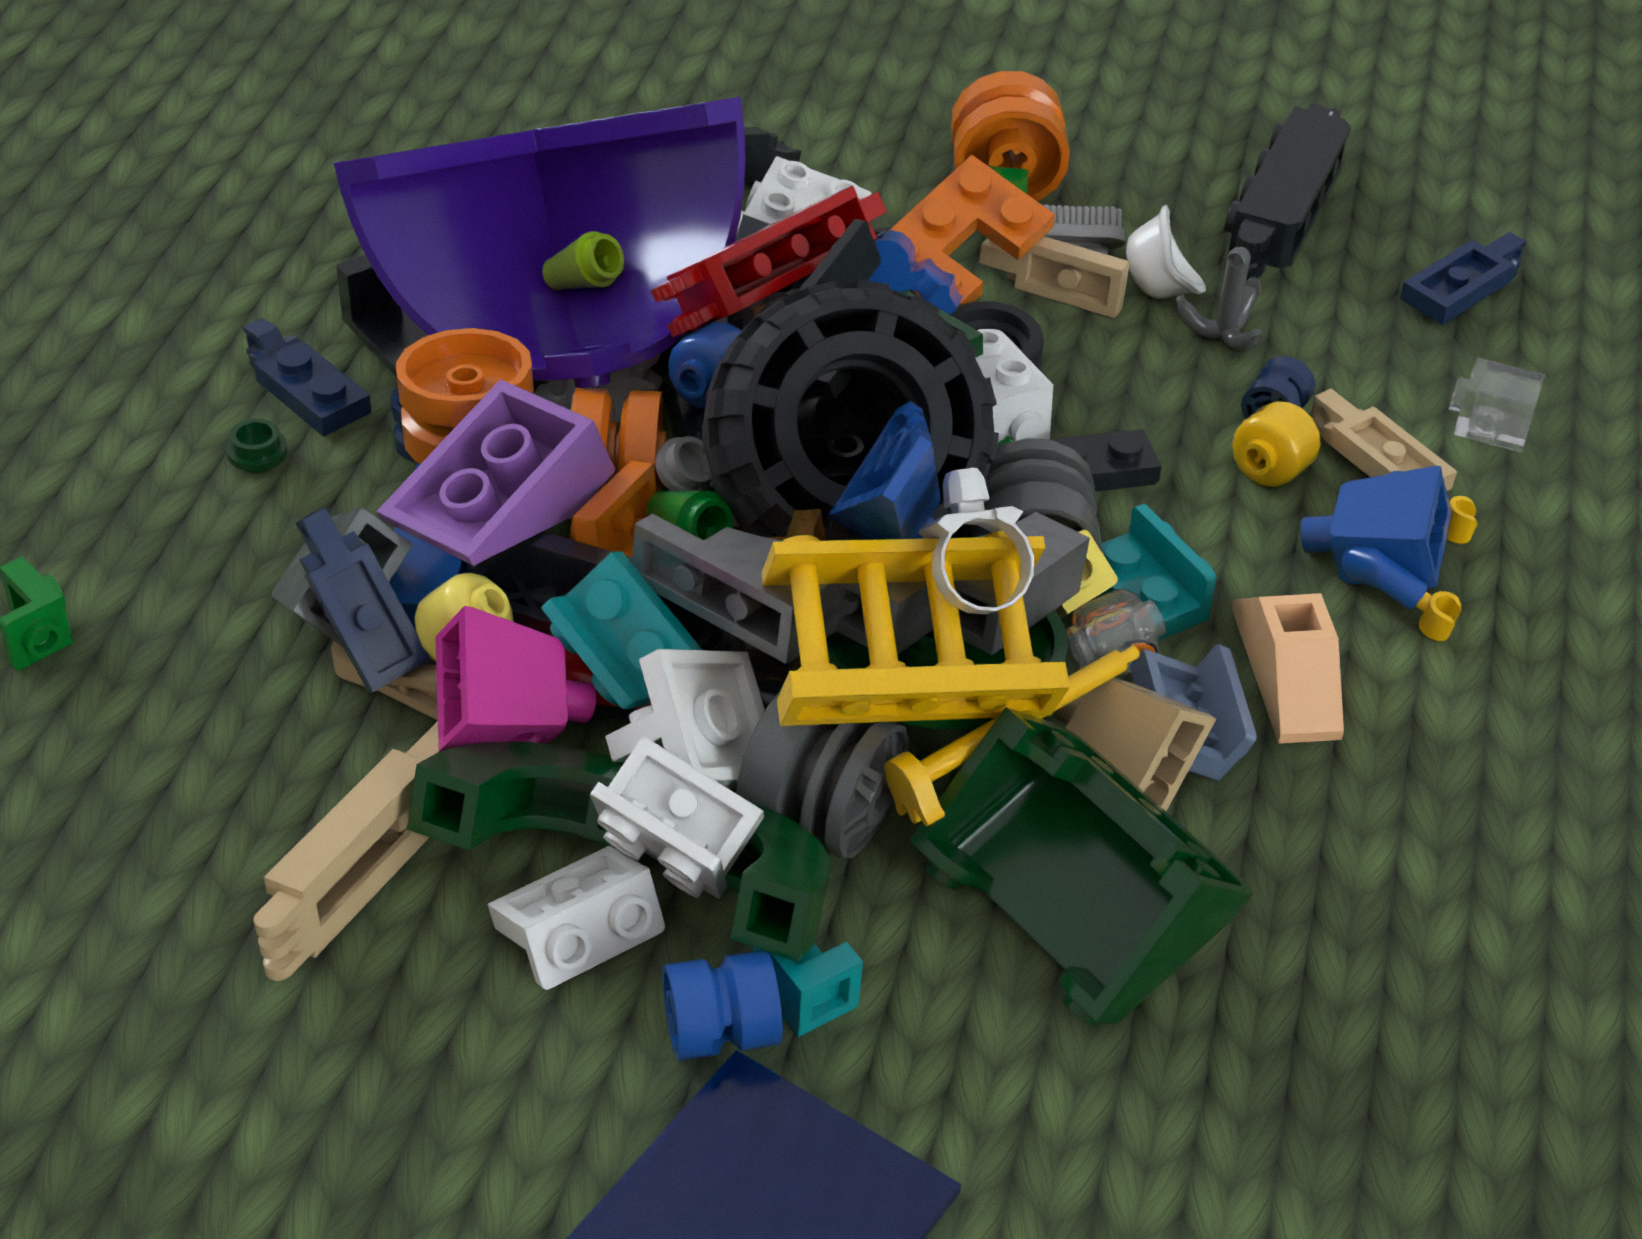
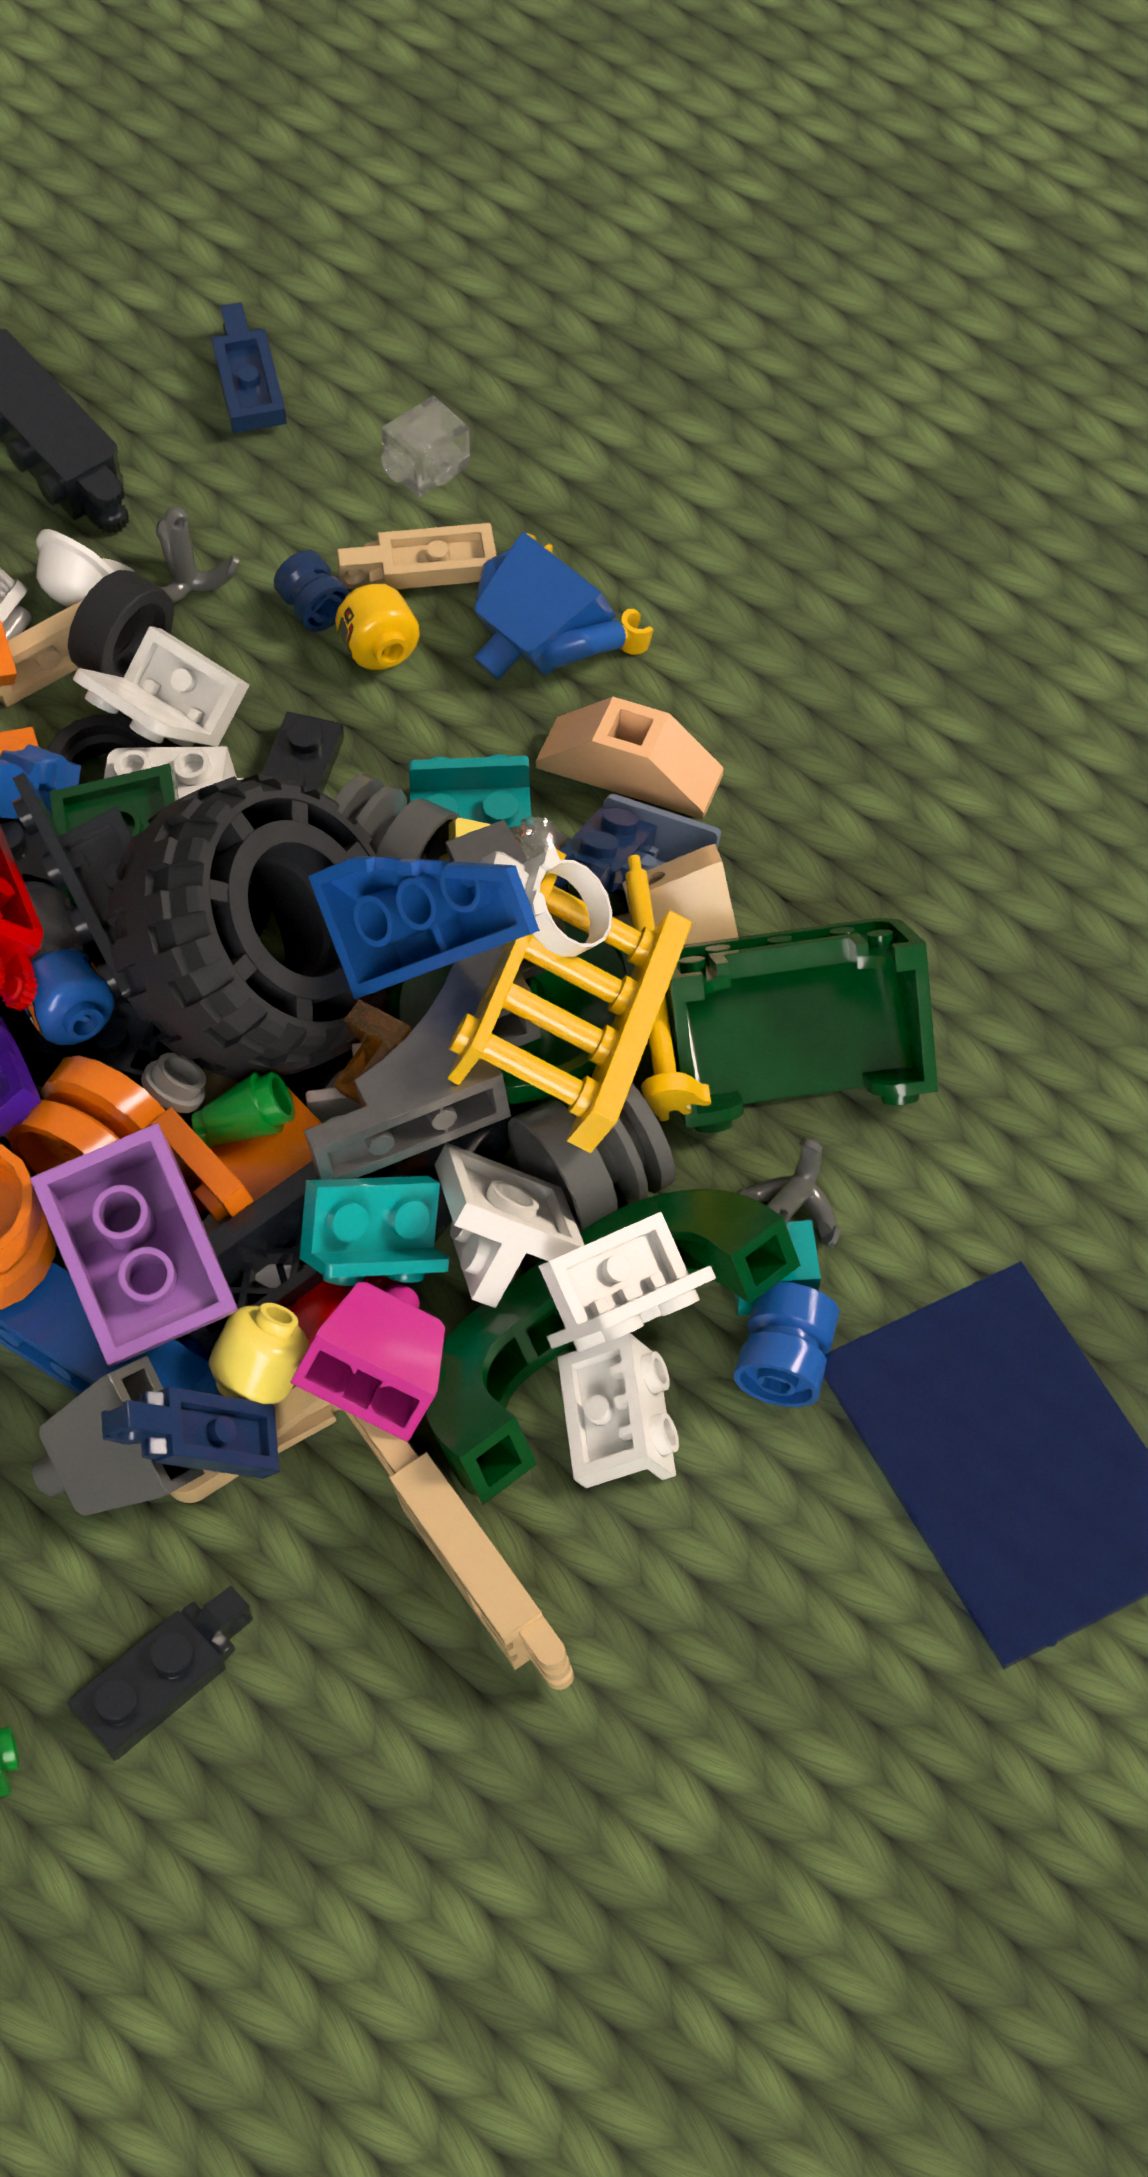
camera: 60 degrees left, 15 degrees up
(162, 711) = (160, 1673): none -> black hinge
(894, 947) = (792, 1191): none -> dark grey piece
(1084, 360) = (169, 692): none -> white bracket
(1130, 259) = (115, 620): none -> black tyre
(1166, 661) = (606, 845): none -> dark blue hinge

